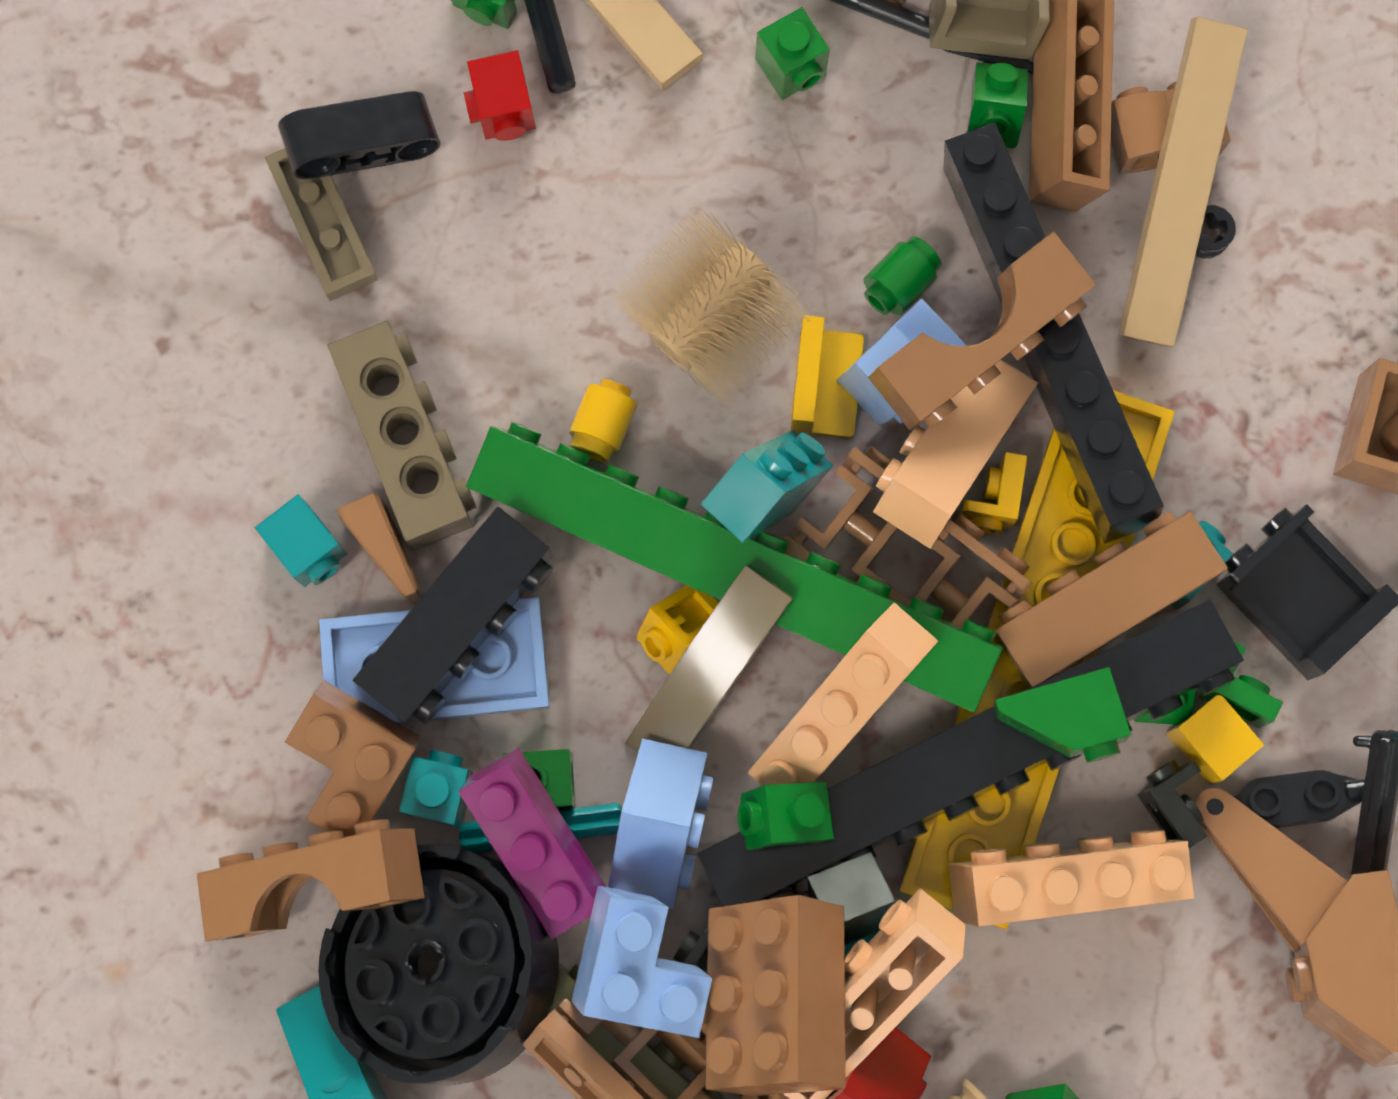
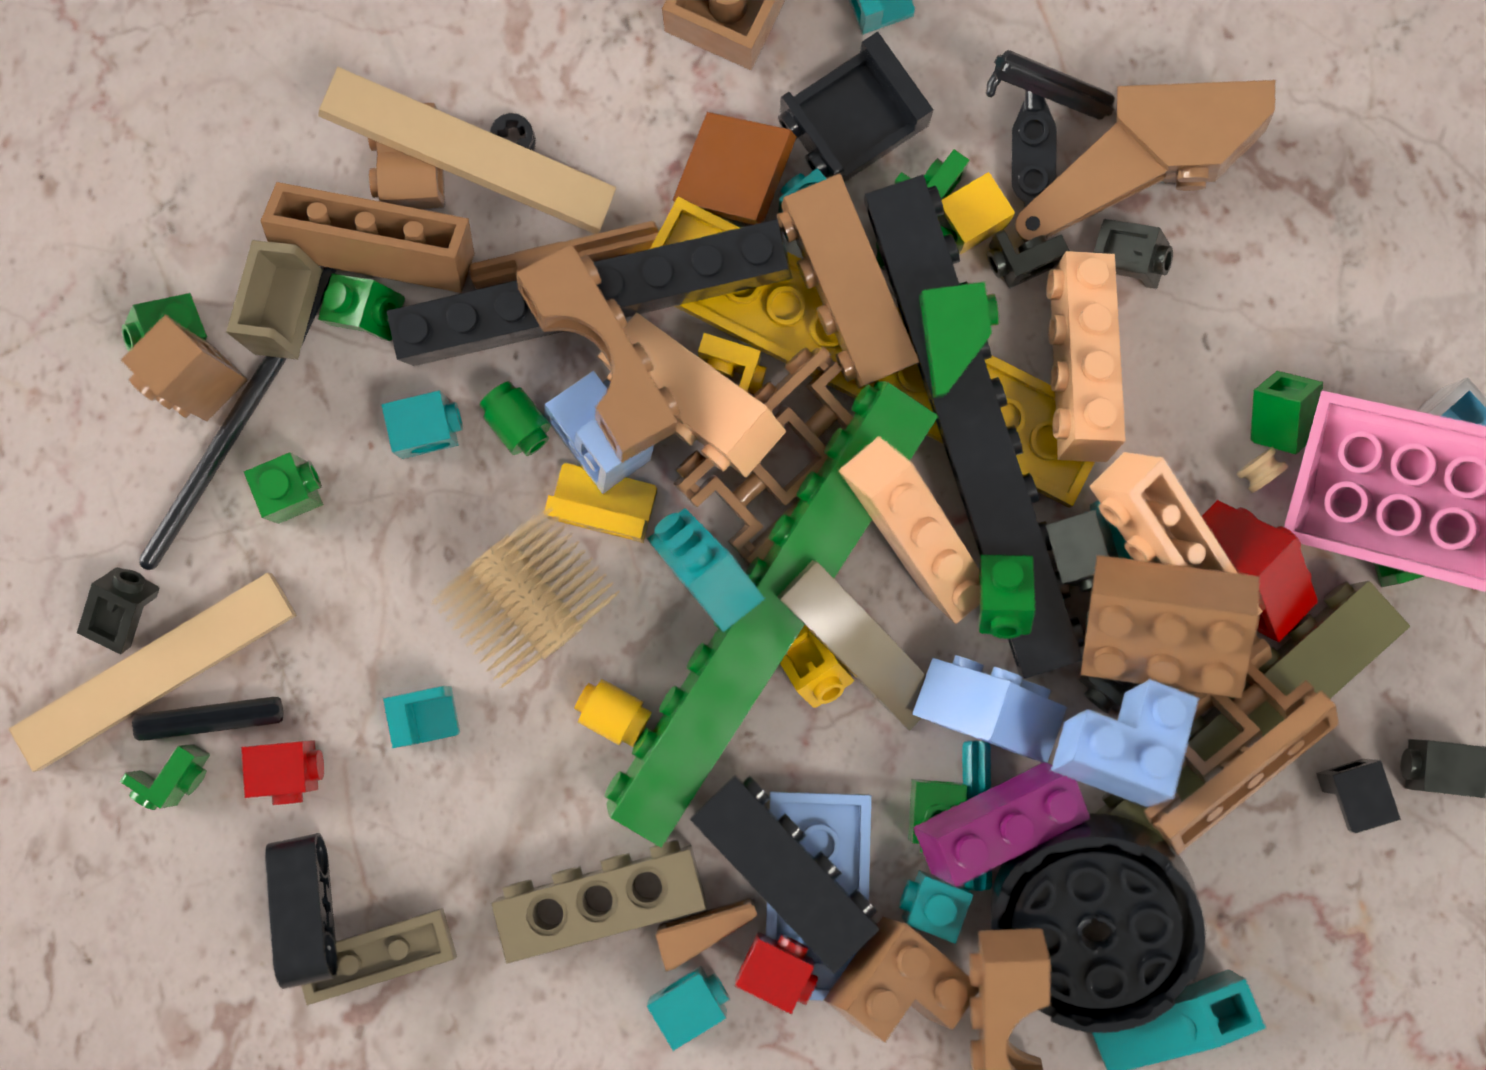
camera: 80 degrees left, 5 degrees up
(347, 624) = (777, 972): none -> red brick
(573, 227) = (421, 716): none -> teal panel
(880, 181) = (422, 424): none -> teal brick
(1096, 314) = (596, 246): none -> medium nougat axle
(1204, 930) = (1138, 250): none -> pearl dark grey bracket
(1218, 468) = (735, 167): none -> dark orange tile

